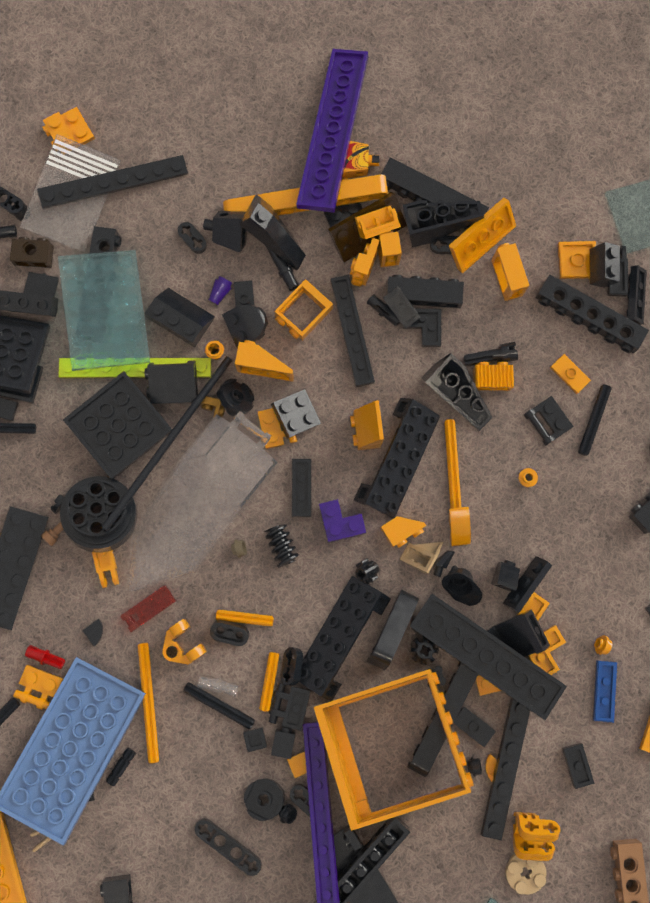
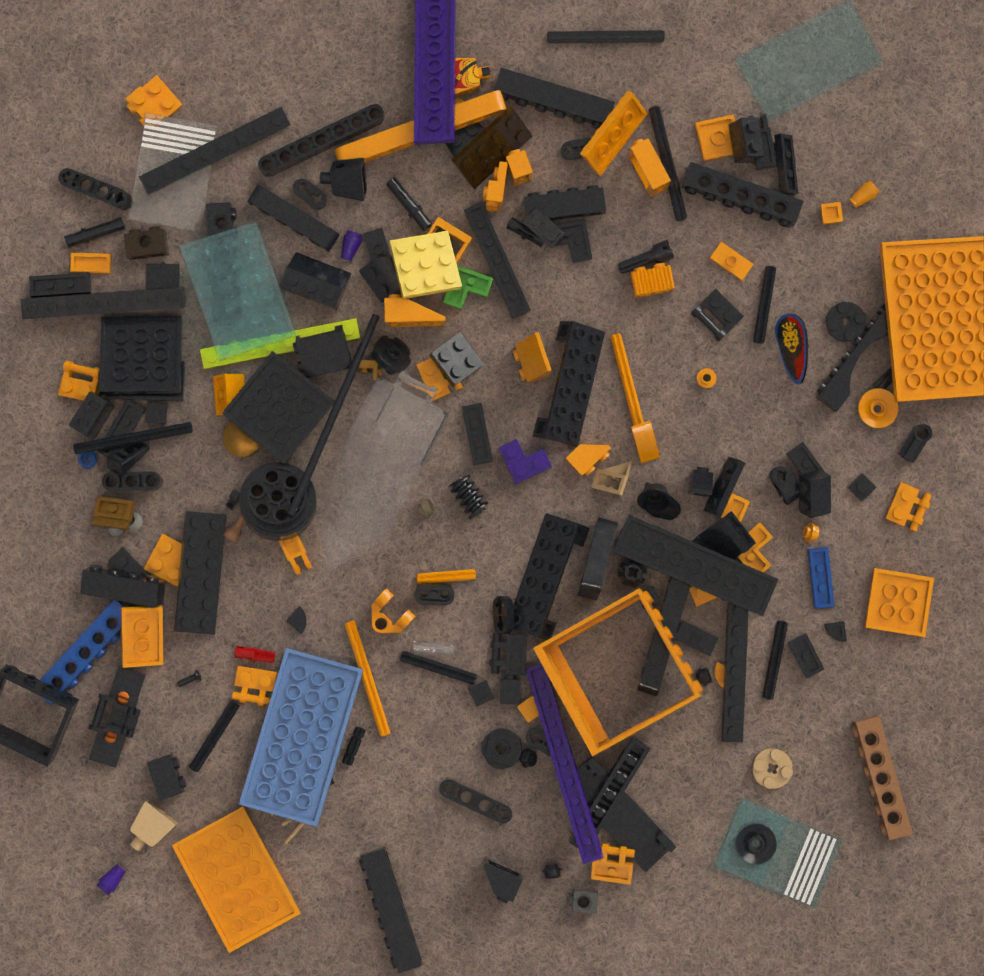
camera: 10 degrees left, 5 degrees up
(74, 397) = (225, 389): none -> light orange panel
(75, 452) = (239, 442): none -> pearl gold dish
(148, 608) = (347, 585): clear red plate -> none
(169, 252) = (293, 217): none -> black beam
(204, 188) = (311, 139): none -> black beam
(214, 346) = (355, 306): light orange cone -> none
(269, 229) = (391, 172): black wedge -> none
(269, 681) = (483, 634): light orange axle -> none
(284, 319) = (425, 264): none -> light yellow plate
(317, 344) = (471, 282): none -> bright green plate
(367, 571) = (560, 505): black gear -> none
(377, 222) = (501, 143): light orange hinge -> none
(436, 220) = (562, 126): black wedge -> none
(442, 562) = (635, 481): black bar -> none
(455, 385) = (612, 297): black wedge -> none
(490, 150) = (634, 36): none -> black axle
(526, 258) = (668, 163): none -> black axle
(534, 835) = (764, 729): light orange piece -> none
(546, 763) = (775, 660): none -> black axle
(586, 595) = (787, 487): none -> black piece
(609, 577) = (803, 459): none -> black plate
(612, 746) = (836, 630): none -> black tile
(614, 608) = (814, 493): none -> black brick
(616, 463) = (793, 345): none -> shield

